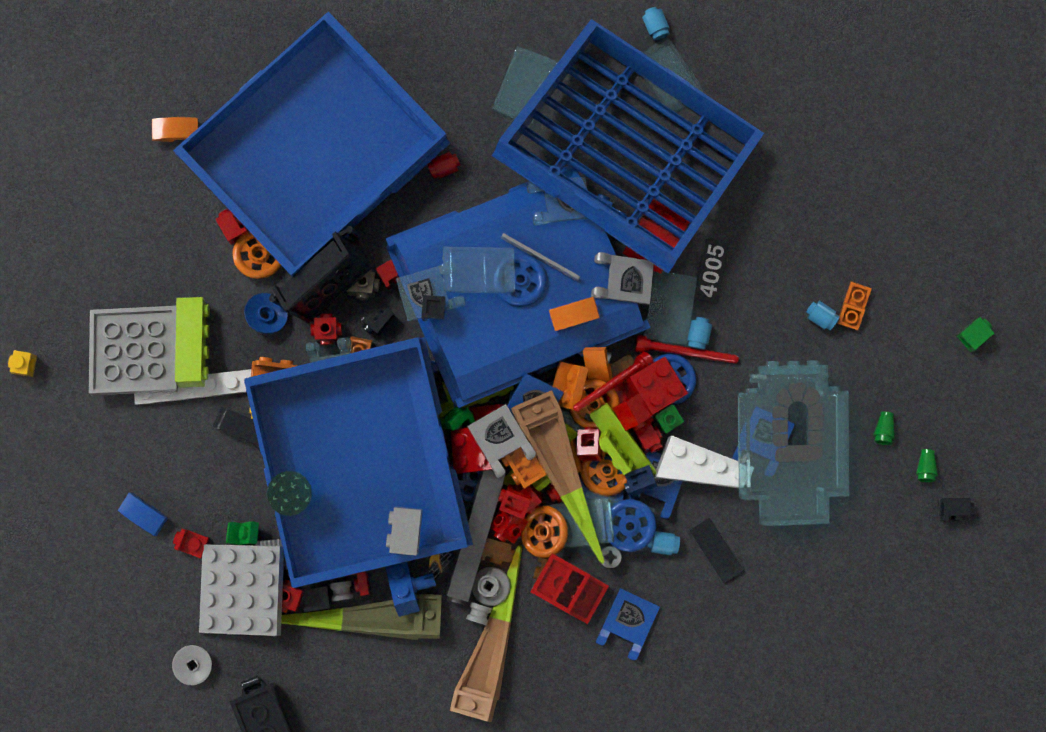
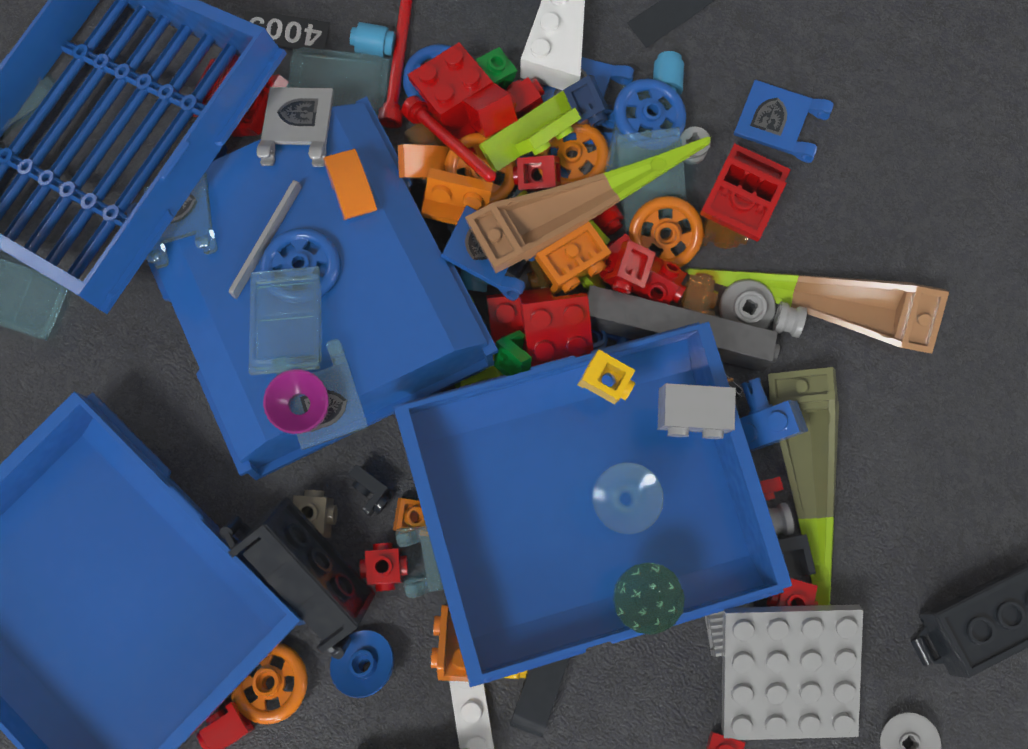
camera: 95 degrees left, 5 degrees down
(242, 533) = (703, 677): green bracket -> none
(340, 486) = (645, 495): none -> clear light blue dish
(387, 273) = (296, 478): red brick -> none
(414, 268) = (284, 389): none -> magenta piece
(432, 466) = (602, 365): none -> yellow brick
(433, 307) = (346, 382): black panel -> none
(443, 165) = (130, 404): red brick -> none
(499, 436) = (538, 285): light grey flag -> none

